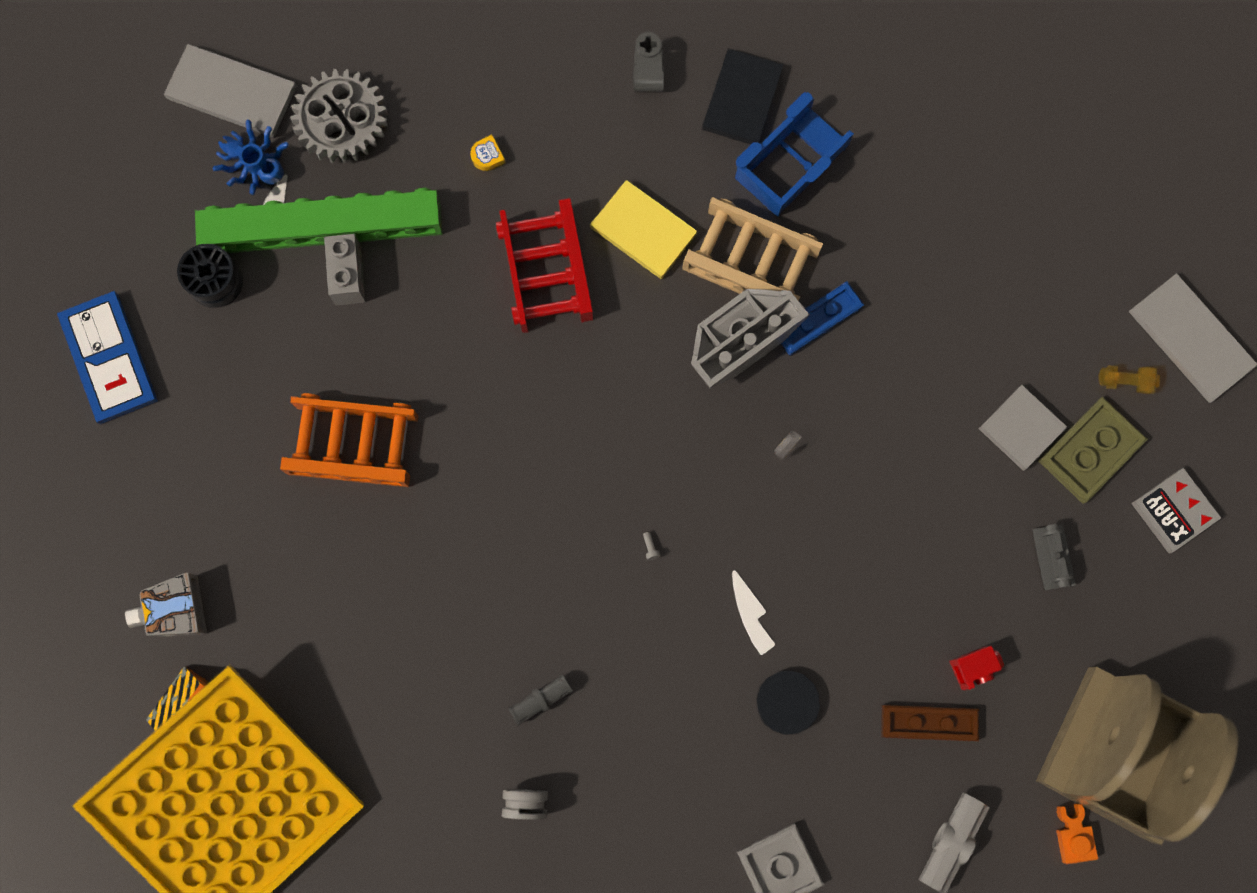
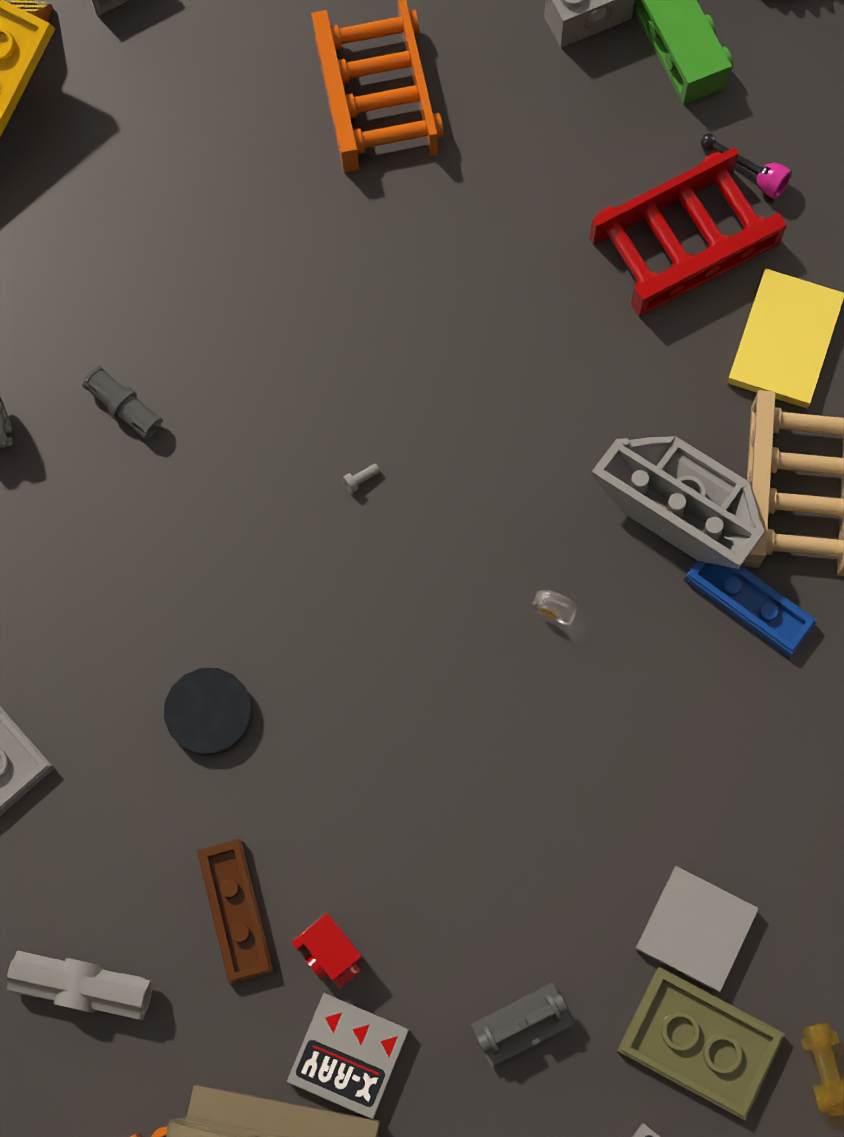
camera: 80 degrees right, 5 degrees down
(486, 154) = (810, 118): tile -> none
(523, 196) = (771, 178): none -> hinge
(750, 611) = (315, 630): white sticker -> none
(1044, 675) = (348, 1055): none -> tile

